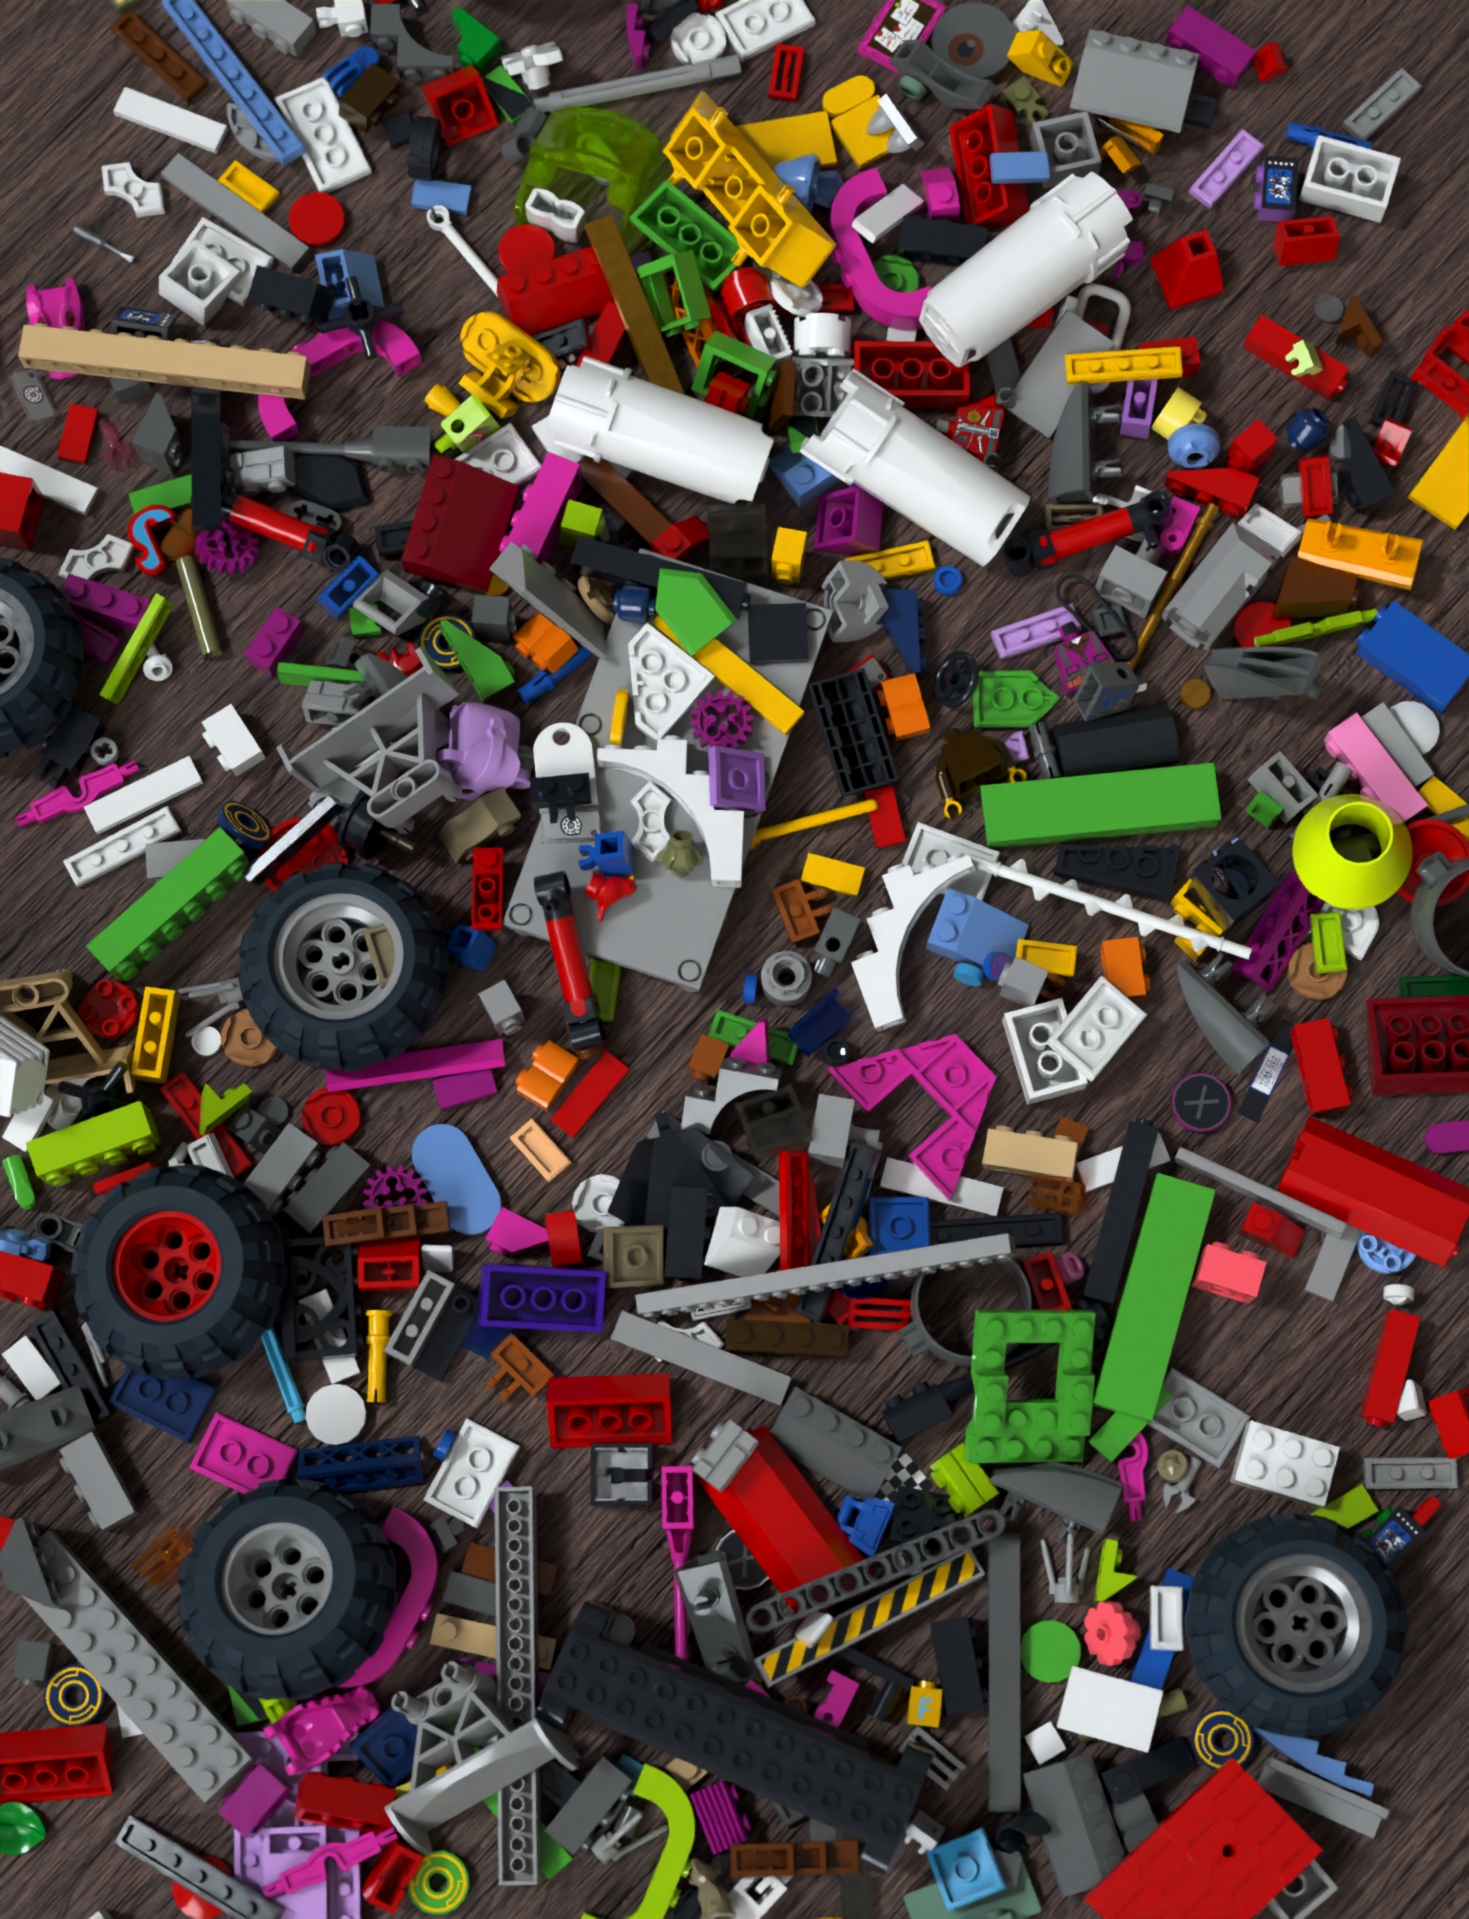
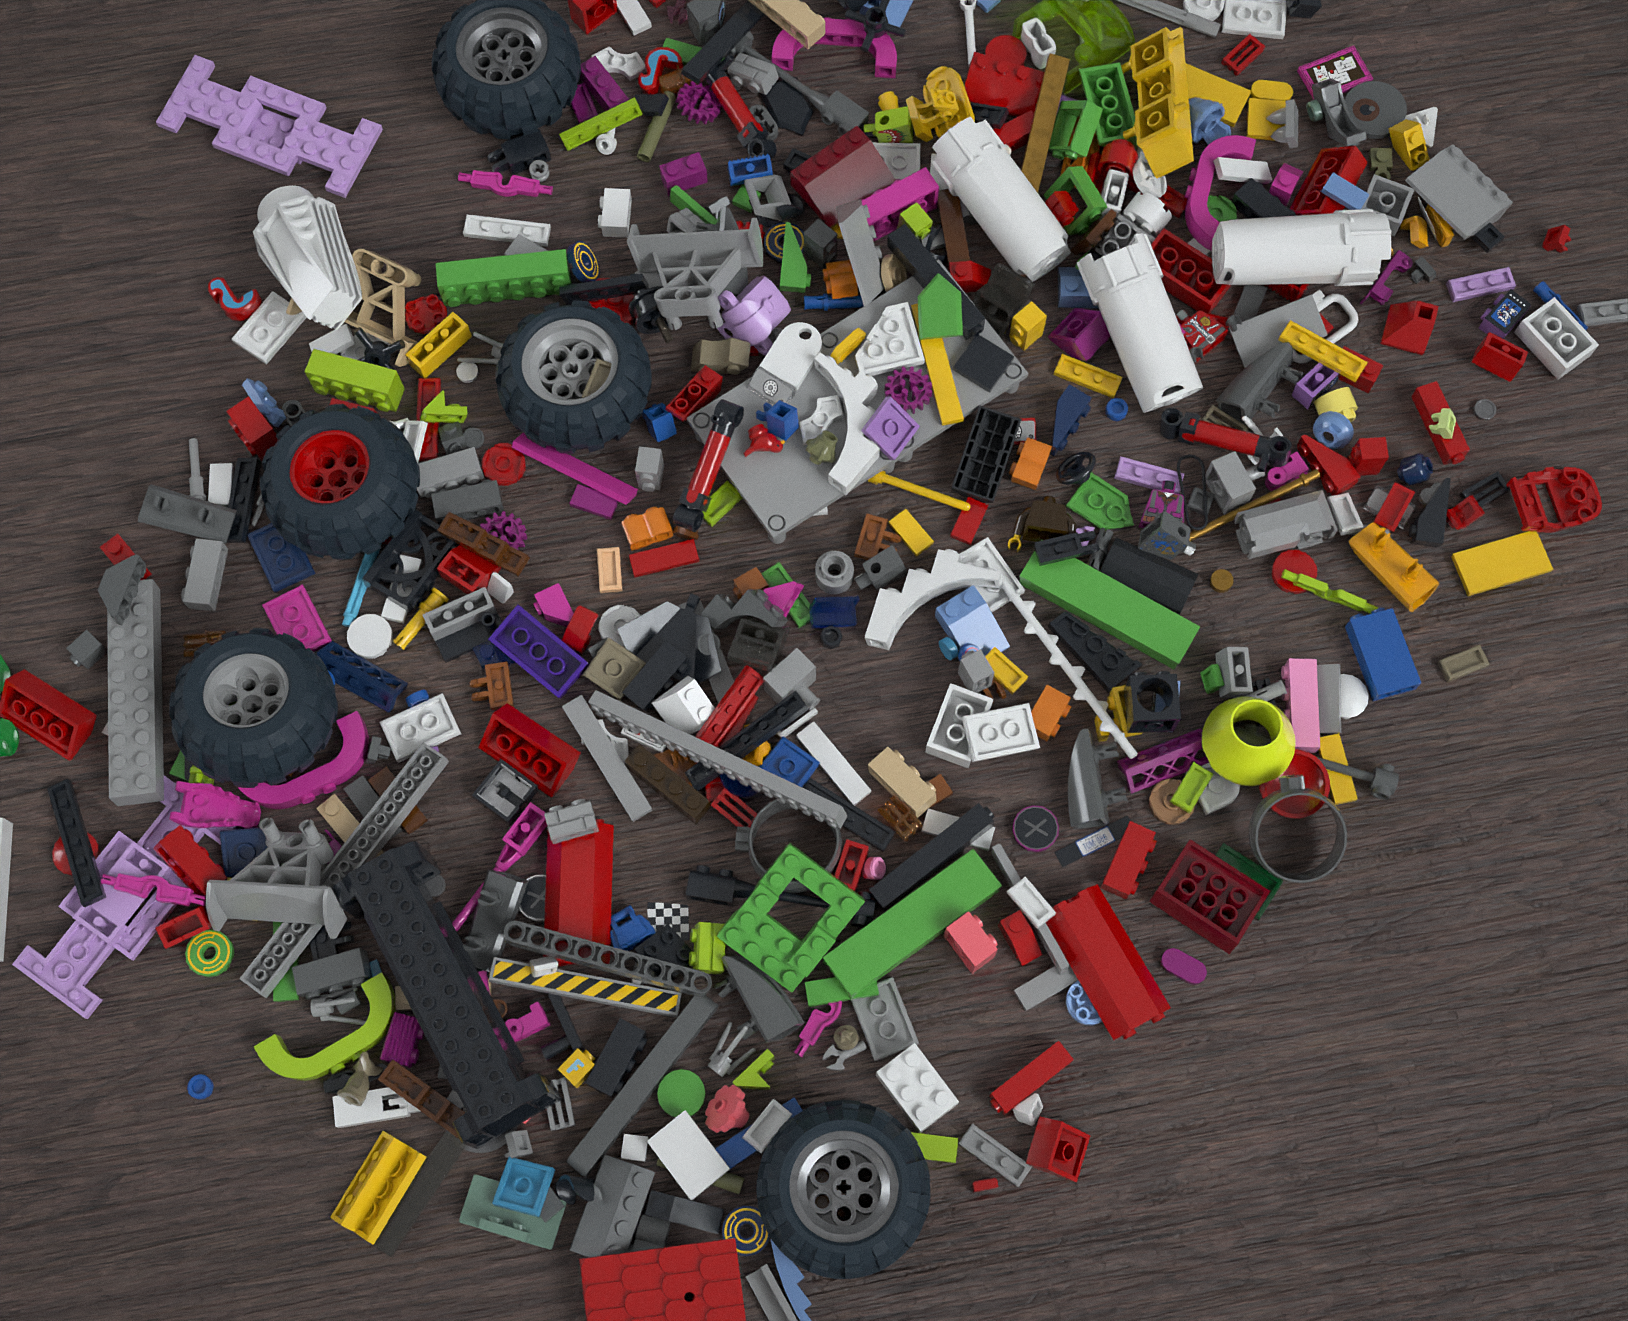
camera: 35 degrees right, 5 degrees down
(20, 1182) = (298, 376): bright green bar -> none
(56, 1696) = (82, 682): dark blue tile -> none
(143, 795) = (541, 209): white tile -> none
(175, 585) = (652, 103): none -> black tile
(245, 1042) = (485, 388): medium nougat tile -> none
(255, 1800) = (141, 821): magenta brick -> none
(457, 1176) = (548, 548): medium blue tile -> none
(559, 792) = (779, 363): black hinge -> none
(634, 603) = (908, 286): dark blue head -> none
(750, 988) = (808, 562): blue tile -> none
(834, 1444) = (646, 868): dark grey slope -> none
(856, 600) = (1047, 379): light grey brick -> none
(950, 1077) = (890, 703): dark pink wing -> none
(1012, 779) = (1064, 547): none -> black hinge
(1217, 49) = (1527, 208): magenta brick -> none
(1260, 1186) = (1031, 902): none -> white tile
(1263, 672) = (1273, 591): dark grey piece -> none
(1313, 591) = (1344, 568): reddish brown slope -> none
(1358, 323) = (1495, 429): reddish brown slope -> none
(1394, 1534) = (951, 1185): brick -> none
(1398, 1294) = (1072, 1036): white tile -> none

